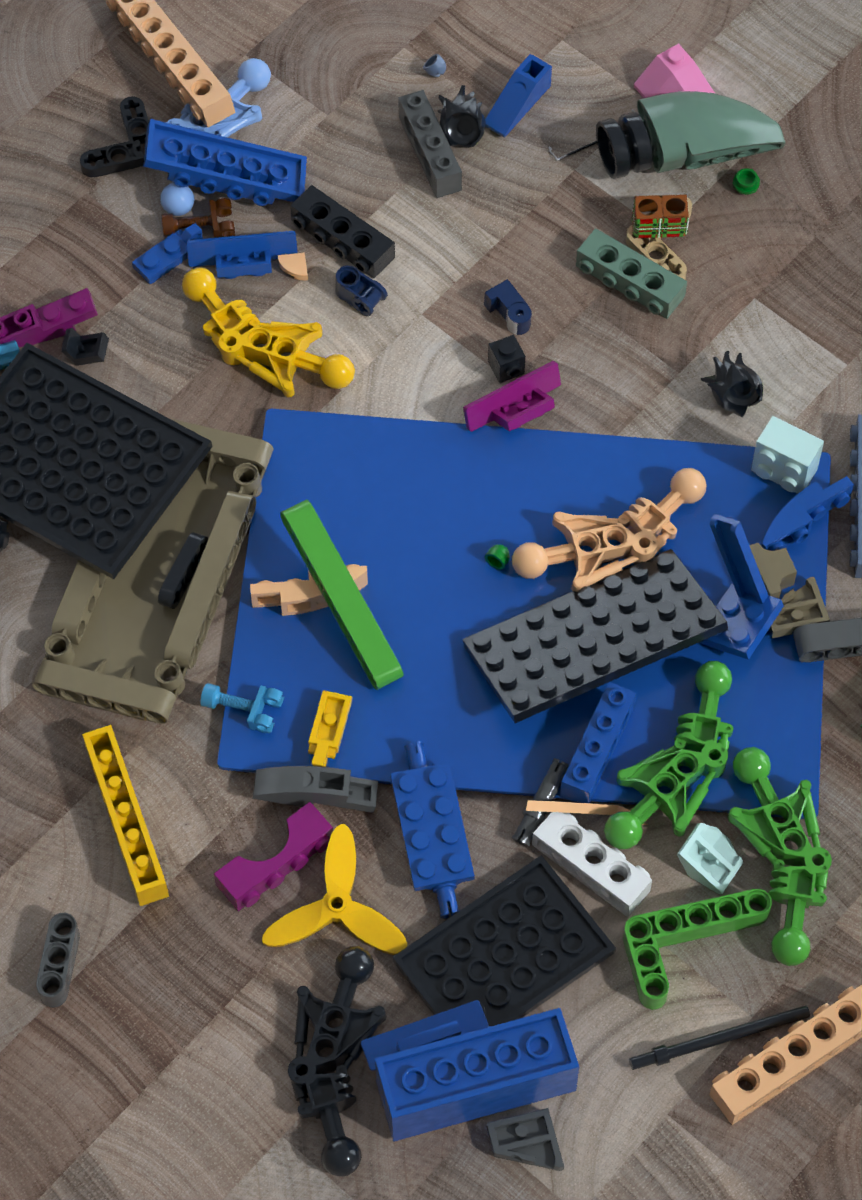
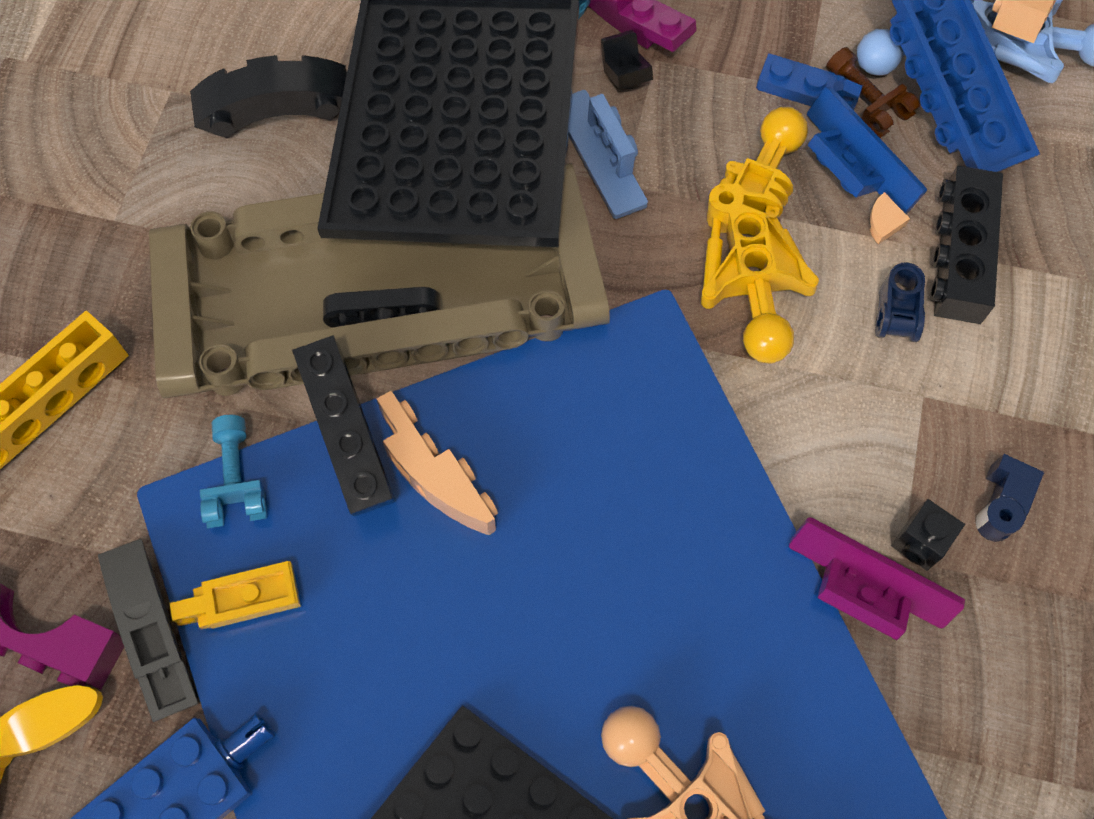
camera: 60 degrees right, 5 degrees up
(155, 391) = (606, 152): none -> medium blue bracket
(259, 618) = (343, 426): none -> black brick
(341, 594) = (425, 509): bright green beam -> none
(497, 556) = (618, 686): green hinge -> none

